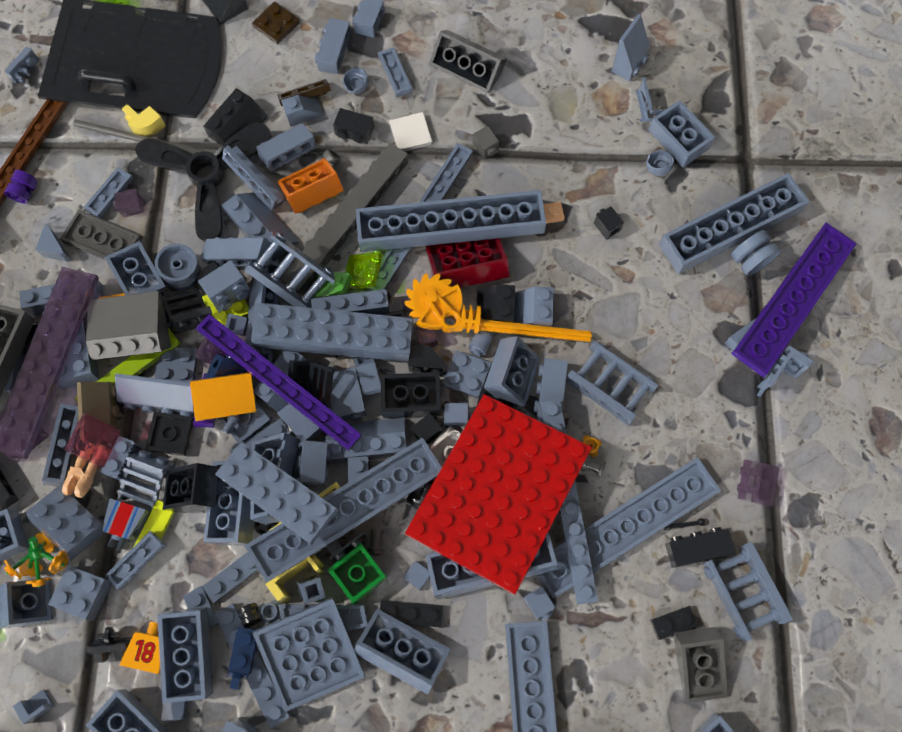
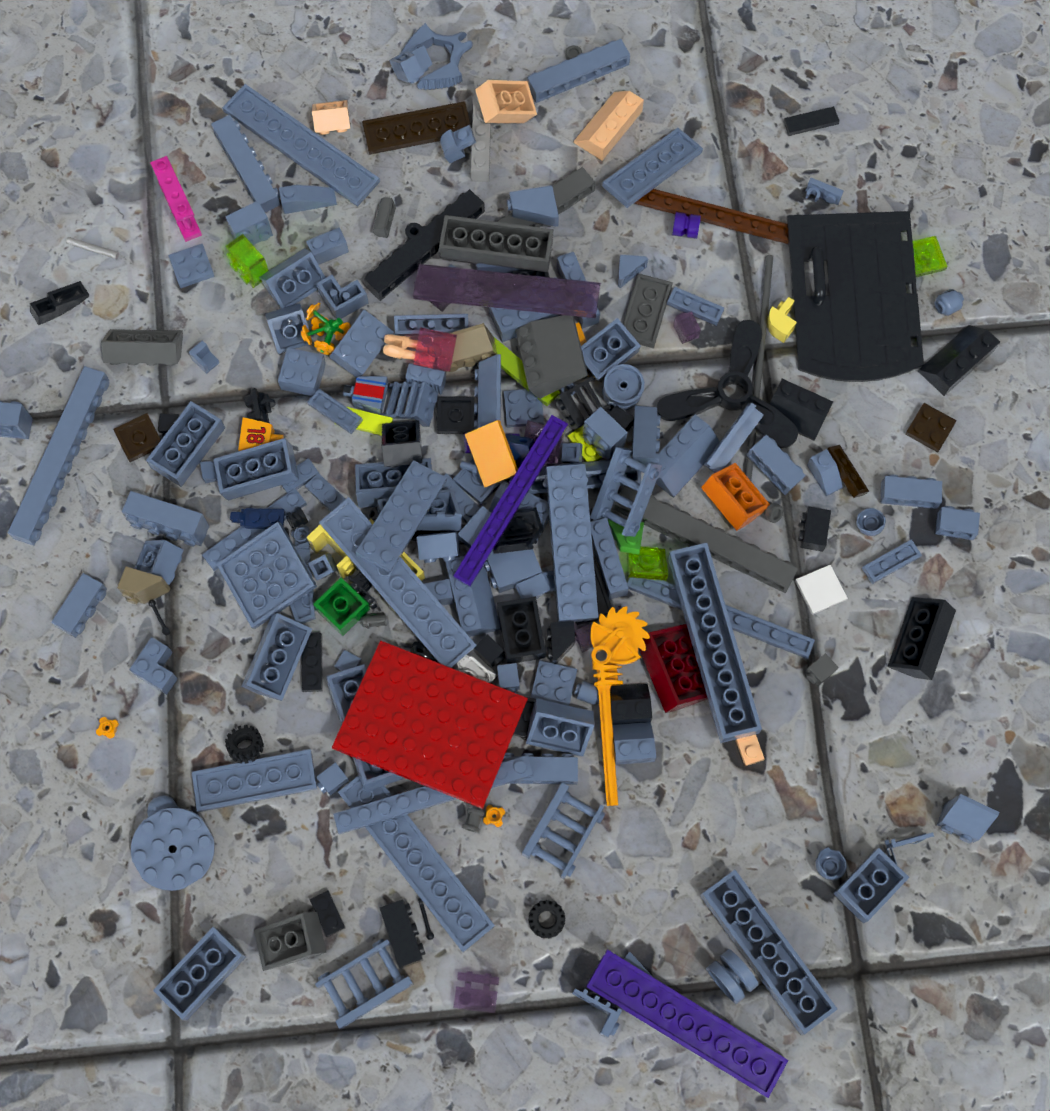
camera: 80 degrees right, 0 degrees up
(480, 695) = (249, 752): none -> black tyre
(608, 222) = (747, 812): black brick -> none
(694, 397) = (556, 910): none -> black tyre

